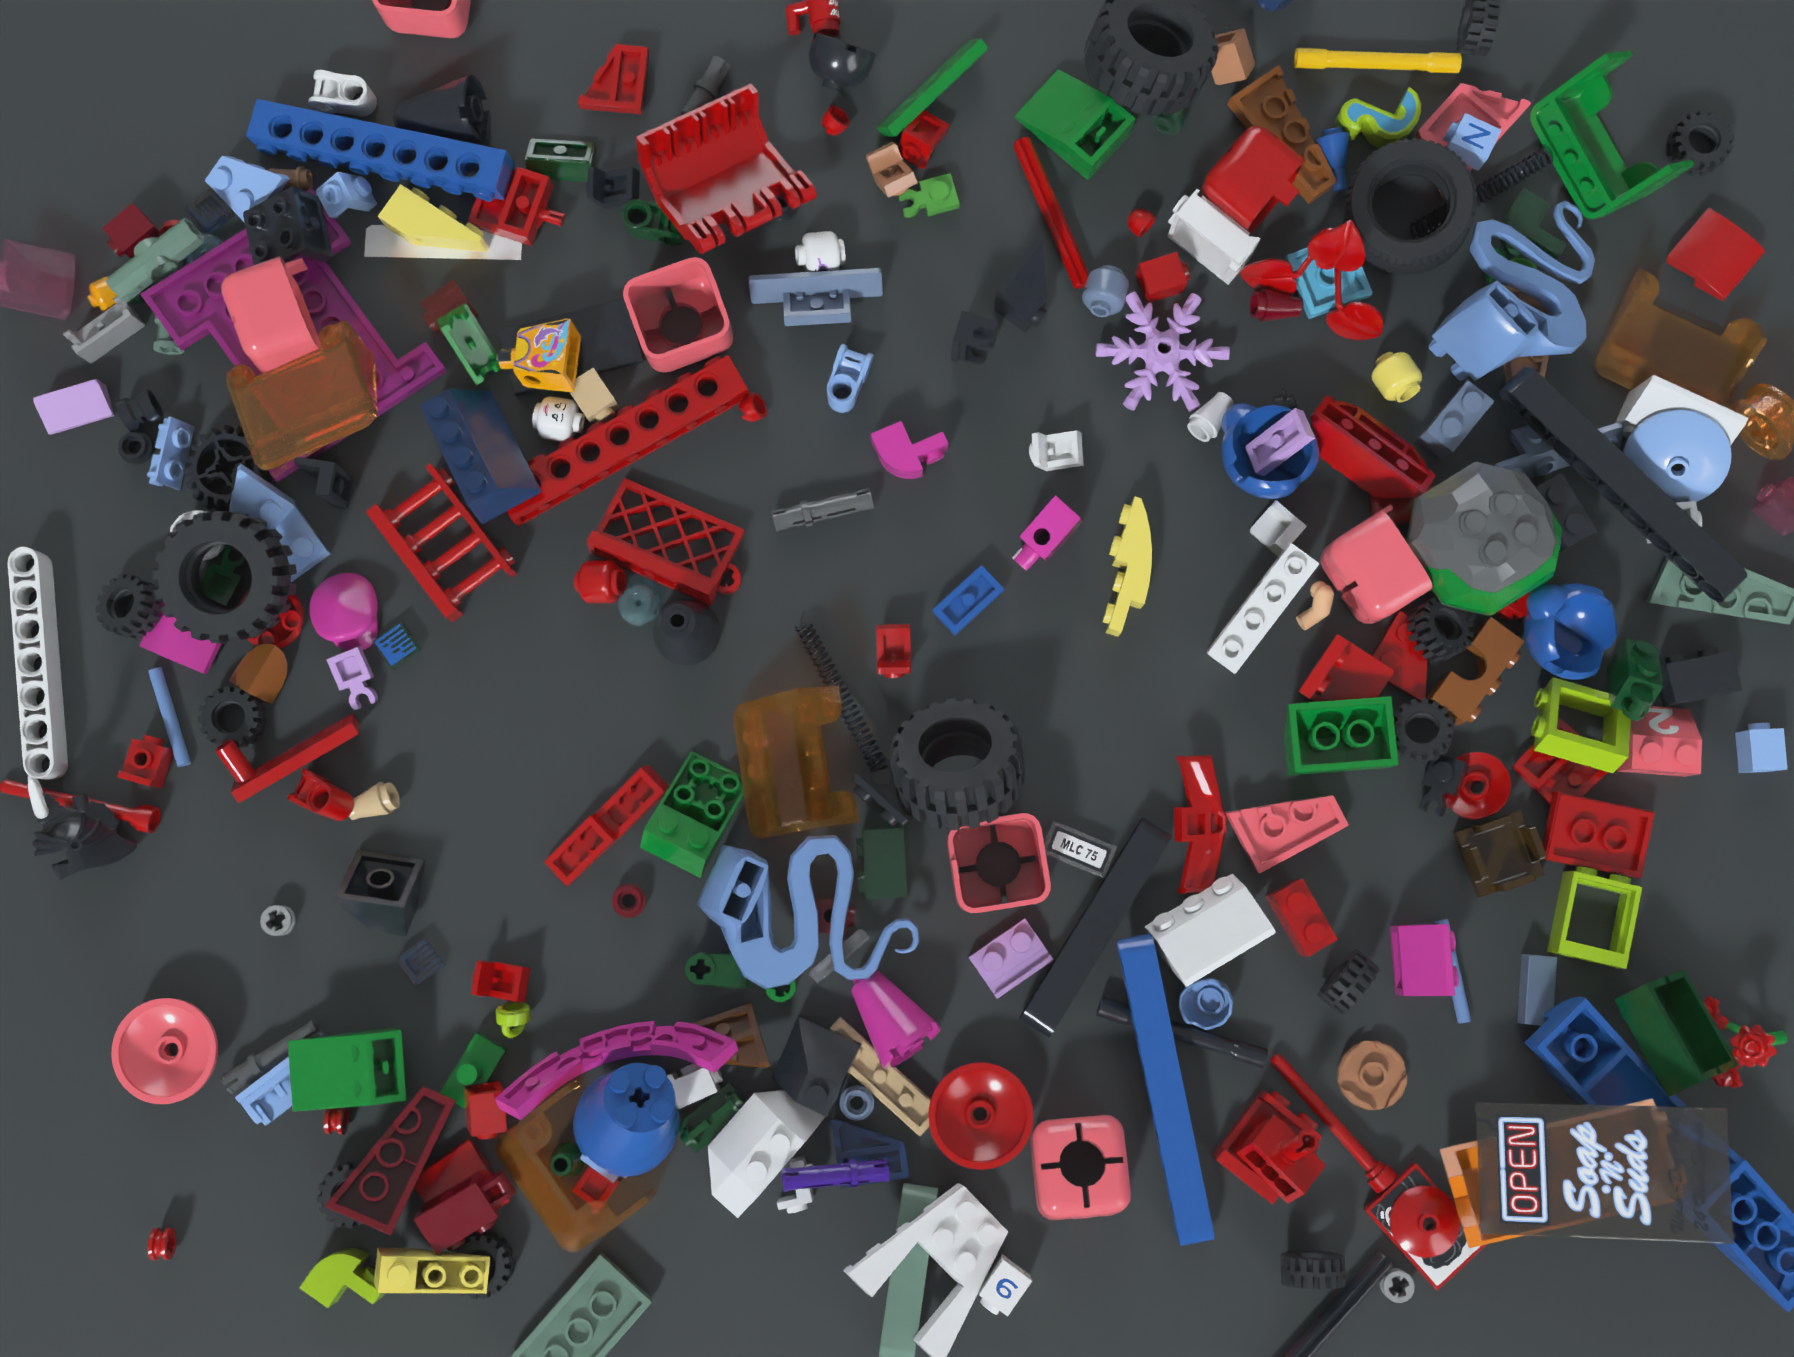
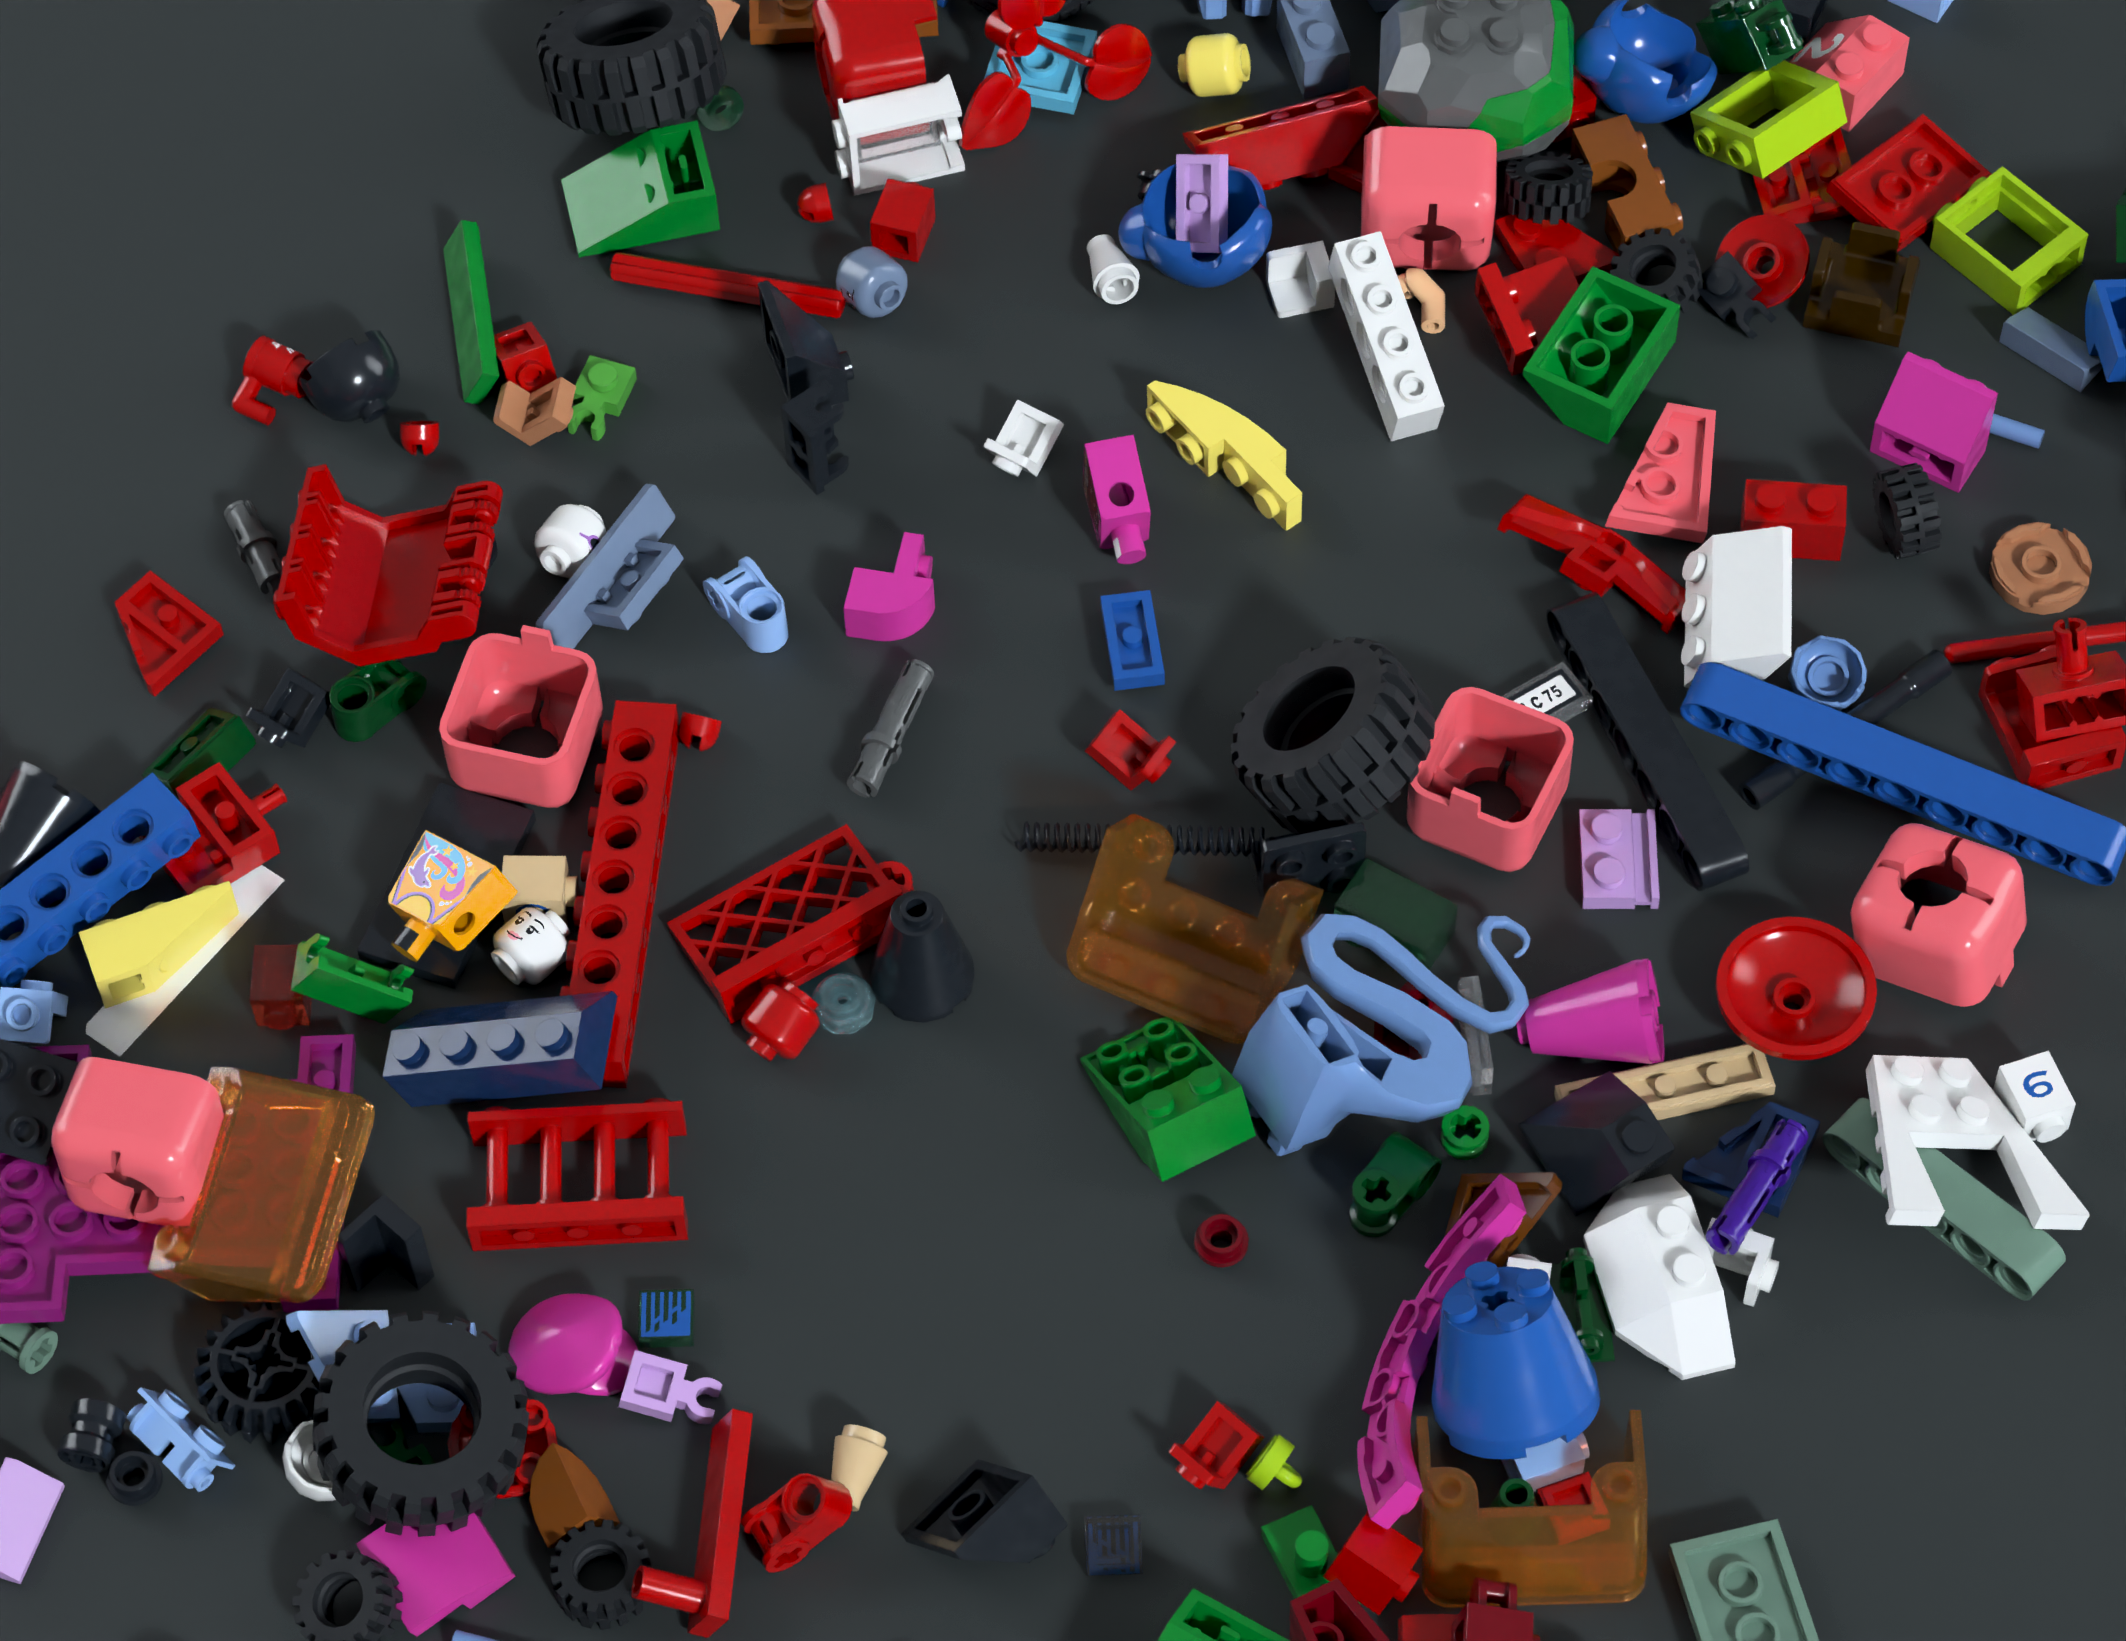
camera: 55 degrees left, 25 degrees down
(607, 825) = (1102, 1209): red slope -> none
(848, 1110) = (1689, 1122): sand blue plate -> none
(1158, 361) = (992, 269): lavender piece -> none
(1273, 305) = (1029, 134): dark red cone -> none

